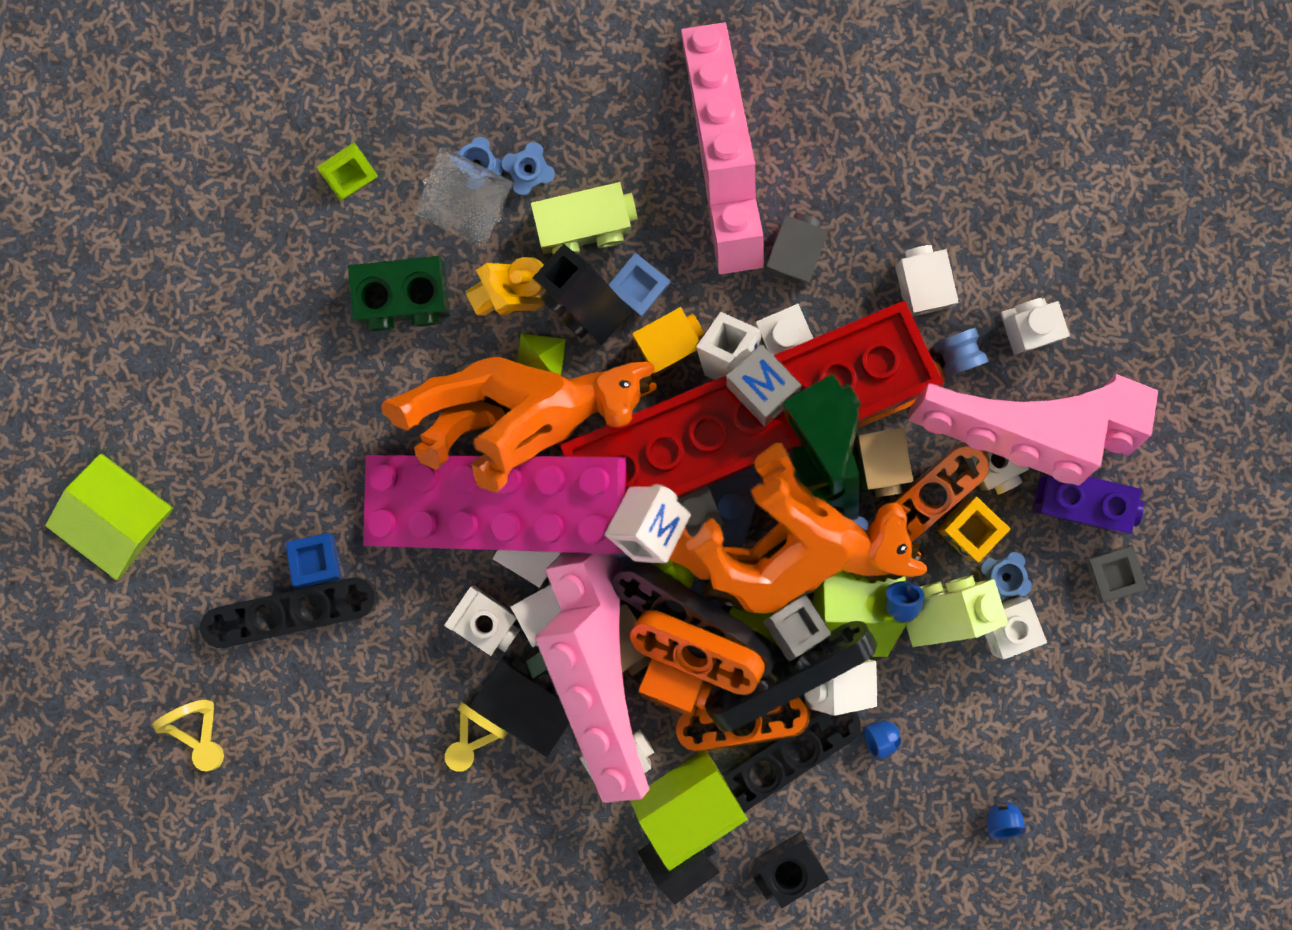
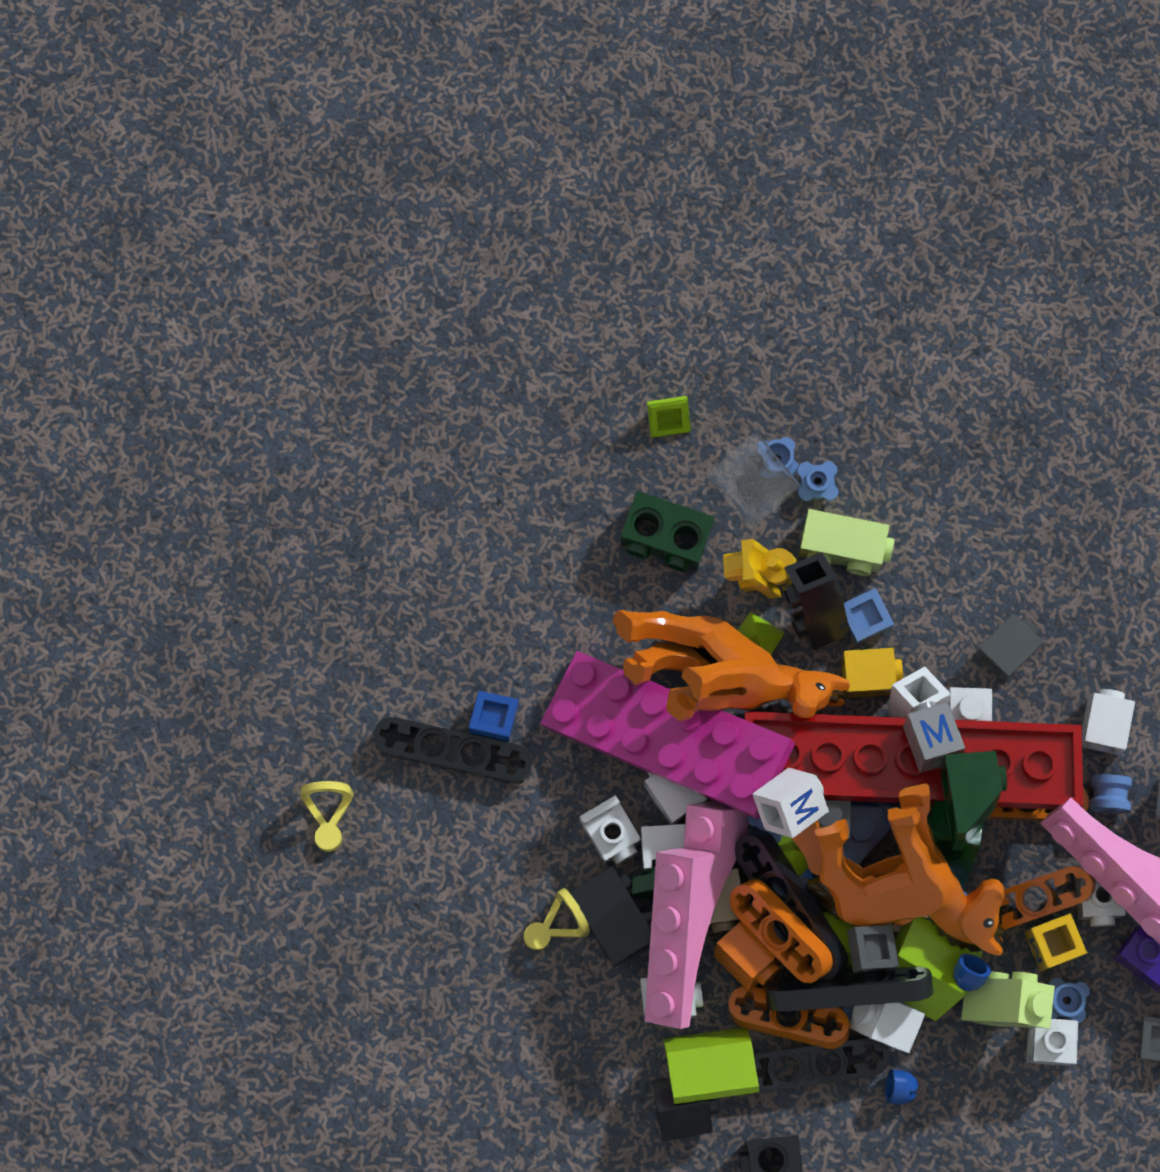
camera: 25 degrees right, 10 degrees down
(108, 516) = (340, 604): lime slope -> none
(724, 149) = (986, 538): bright pink arch -> none
(883, 461) = (1005, 852): tan brick -> none

